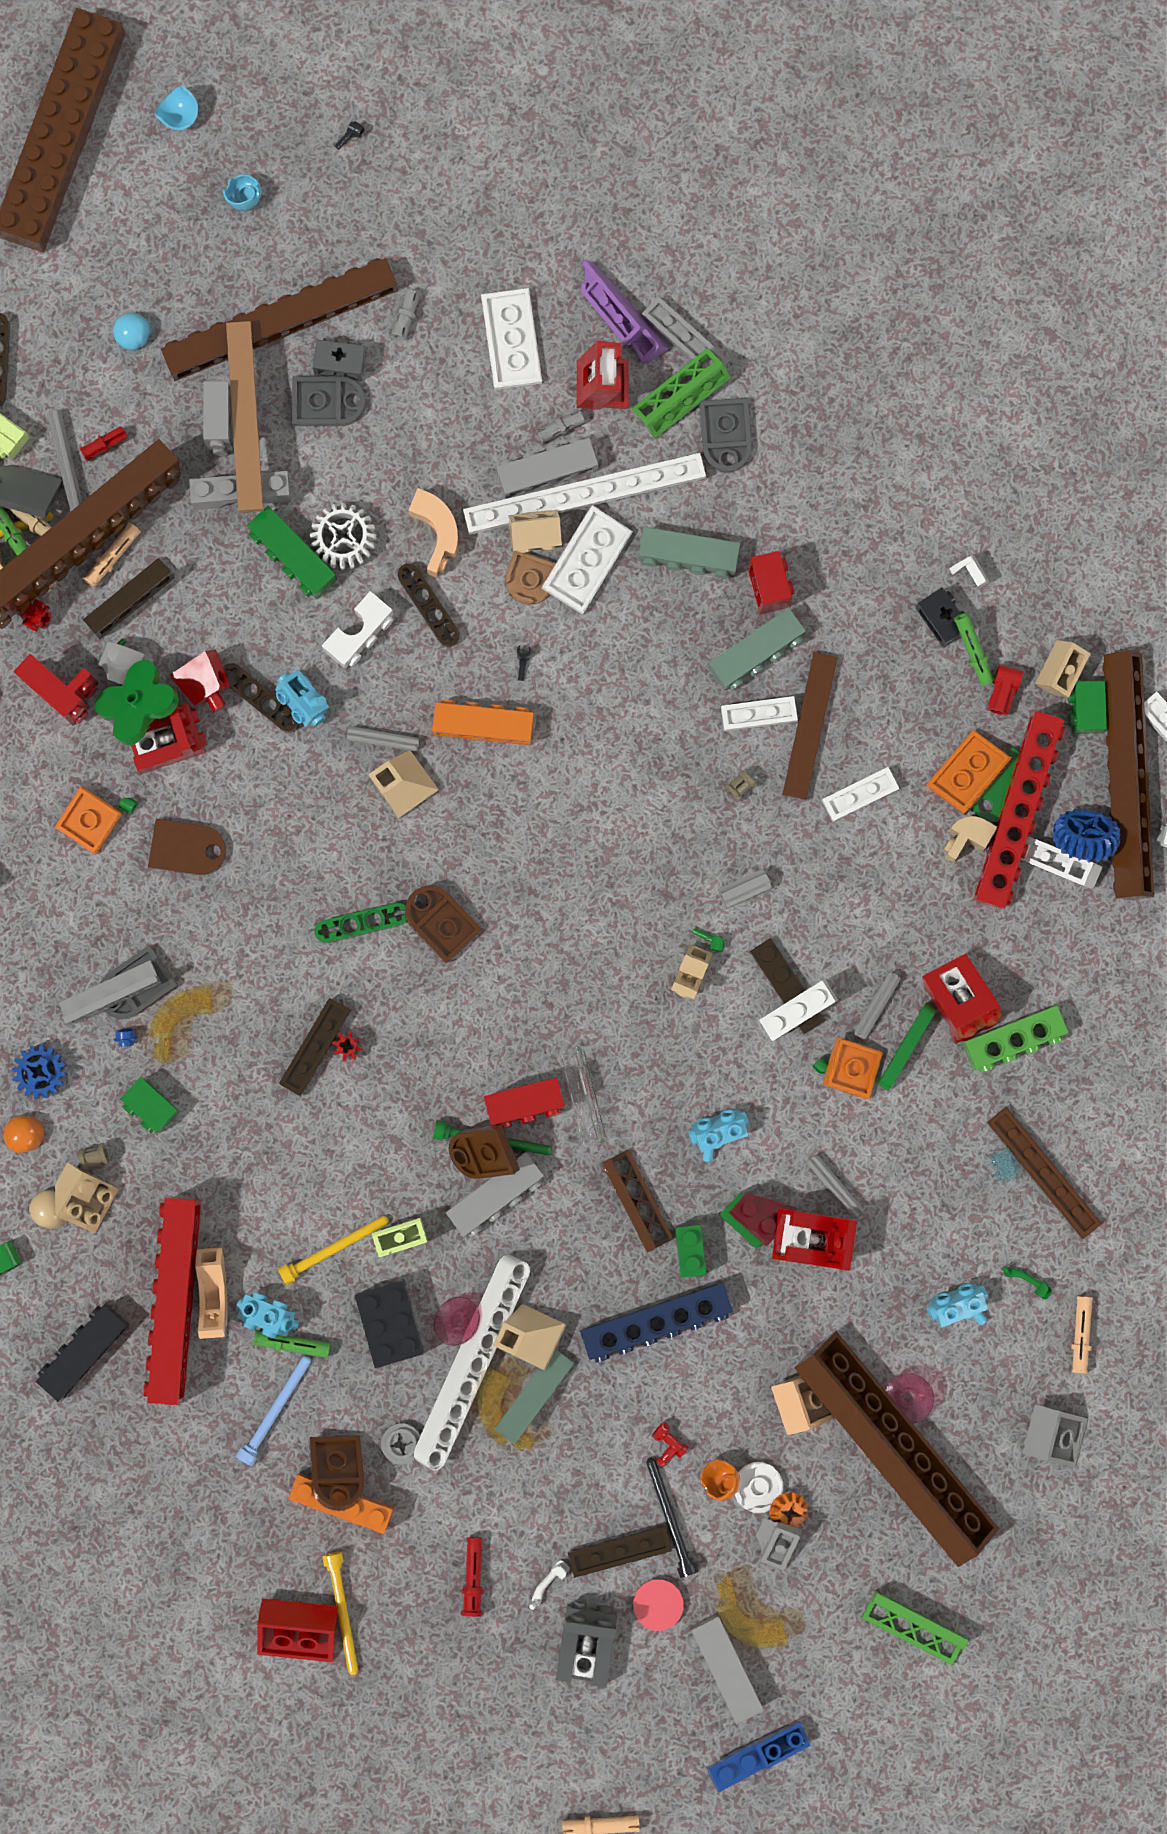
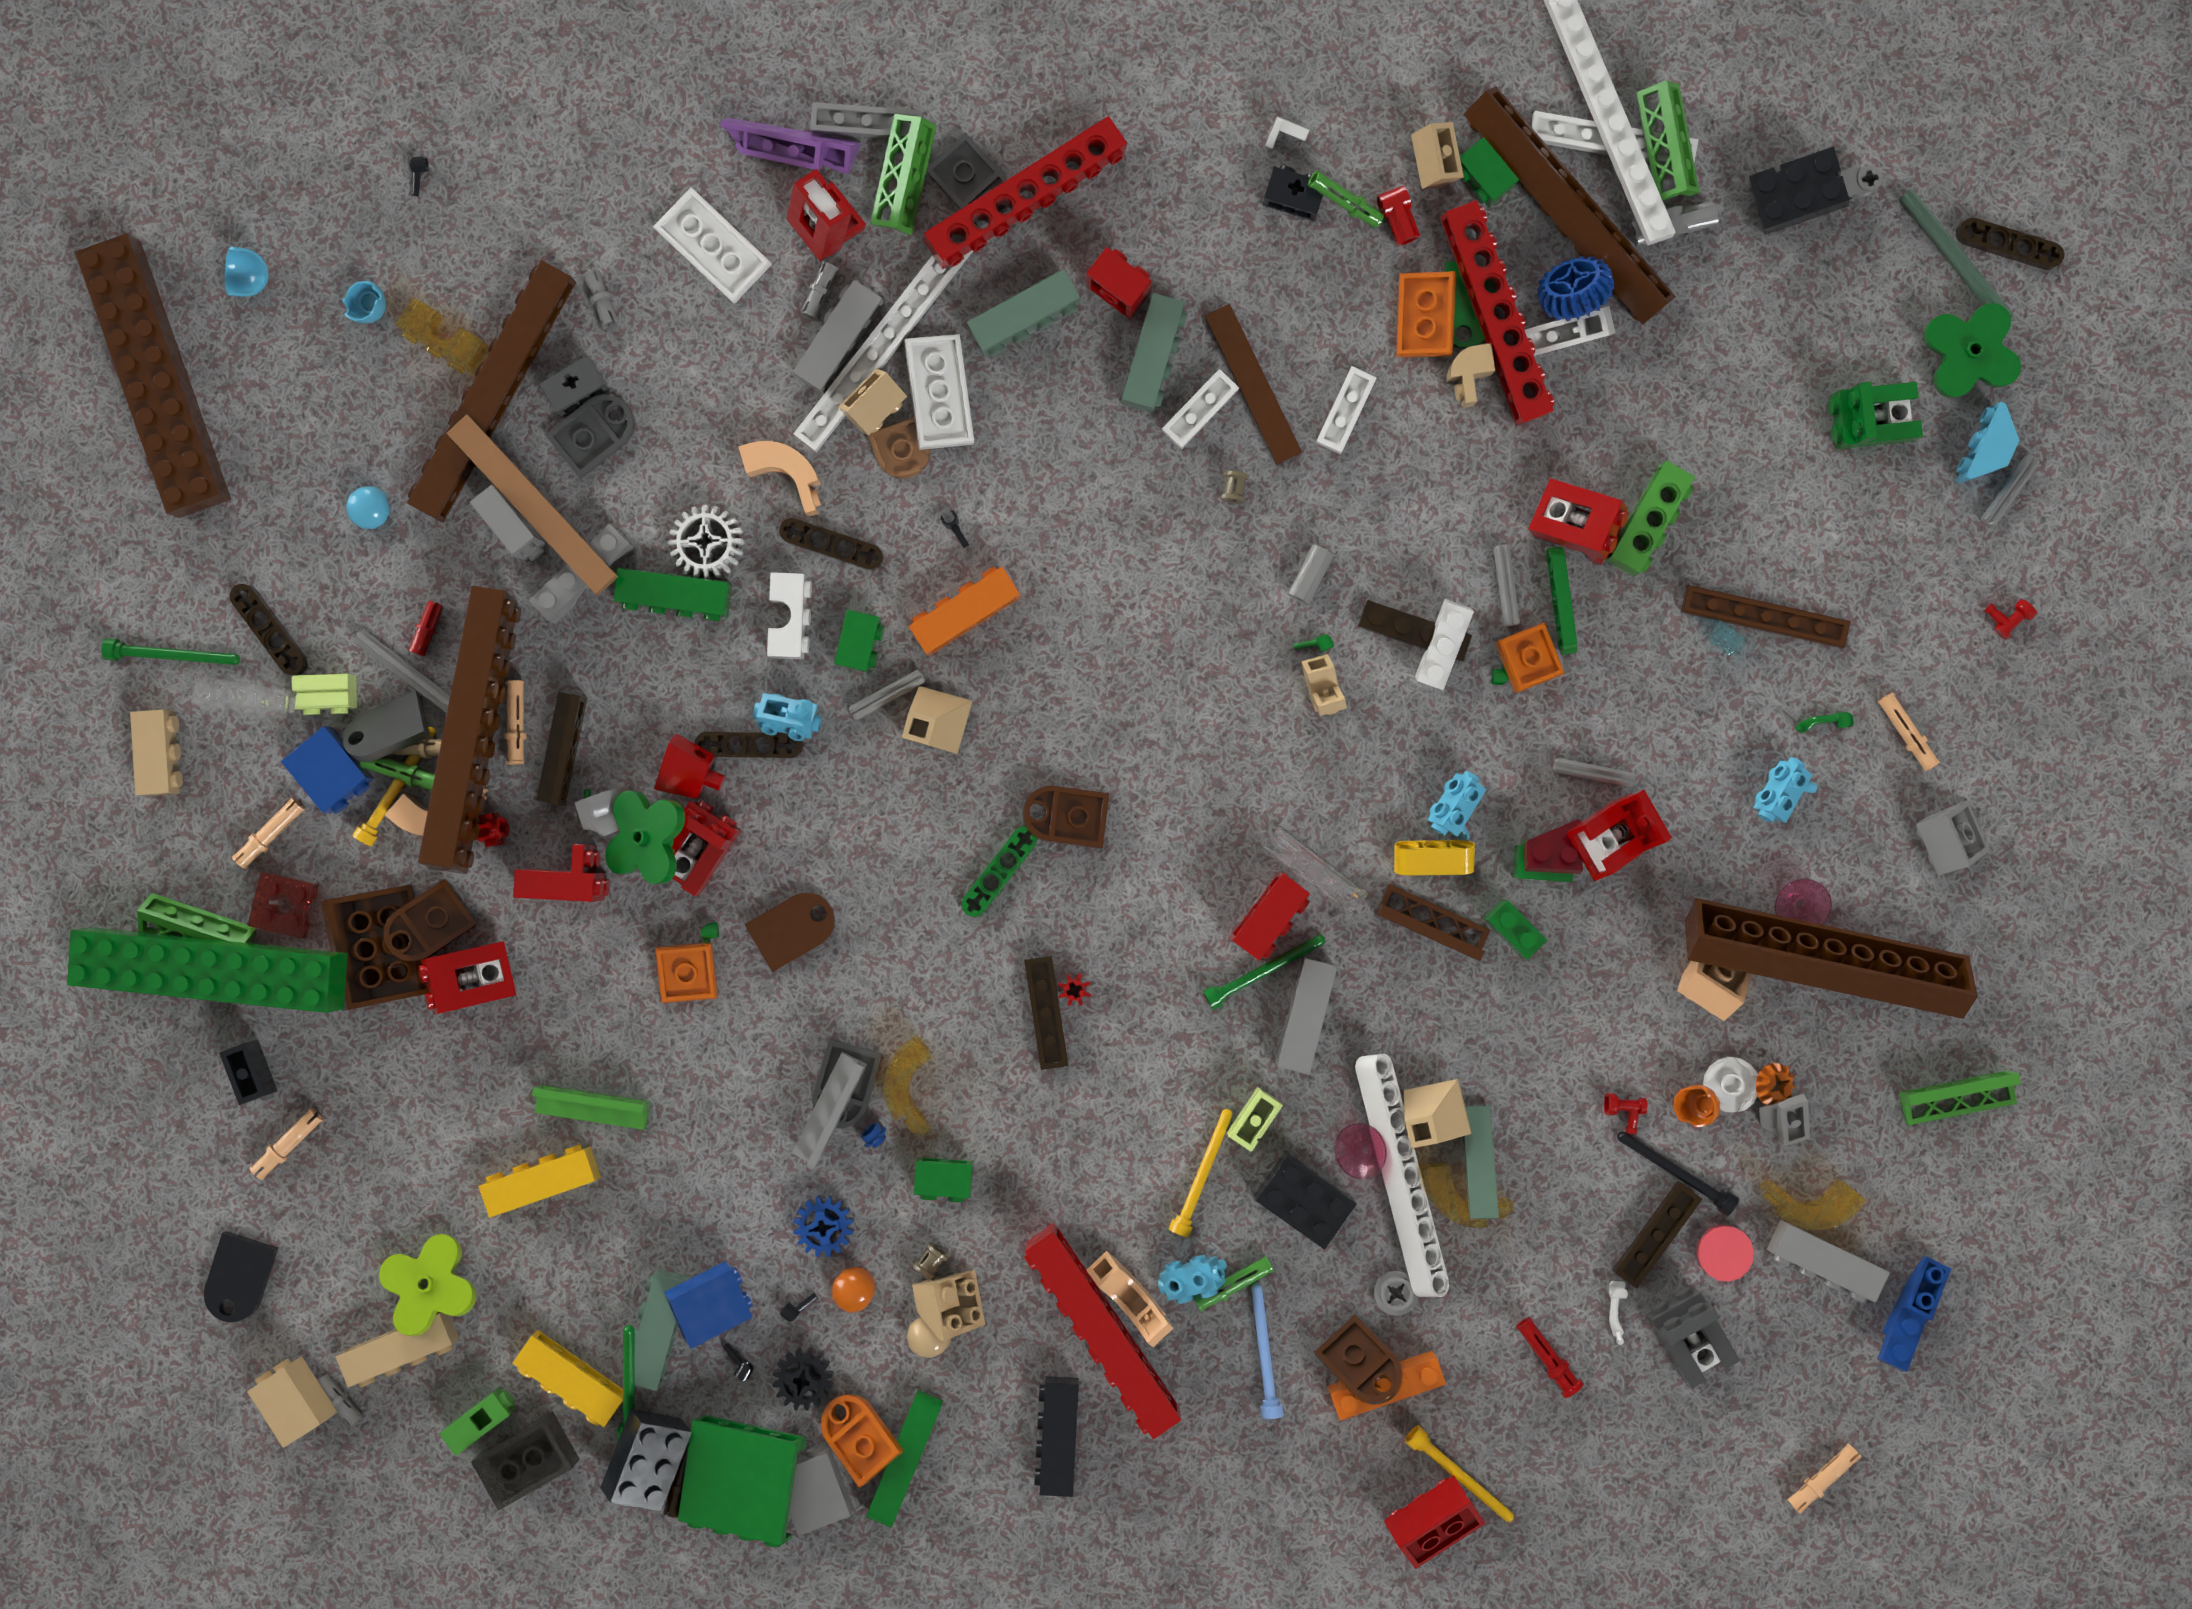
camera: 30 degrees left, 5 degrees up
(270, 236) = (422, 324): none -> clear yellow arch
(393, 686) = (859, 641): none -> green brick
(485, 1152) = (1271, 987): reddish brown tile -> none
(673, 1155) = (1434, 857): none -> yellow beam
(714, 1294) = (1518, 1019): dark blue brick -> none
(840, 472) = (1100, 135): none -> red brick

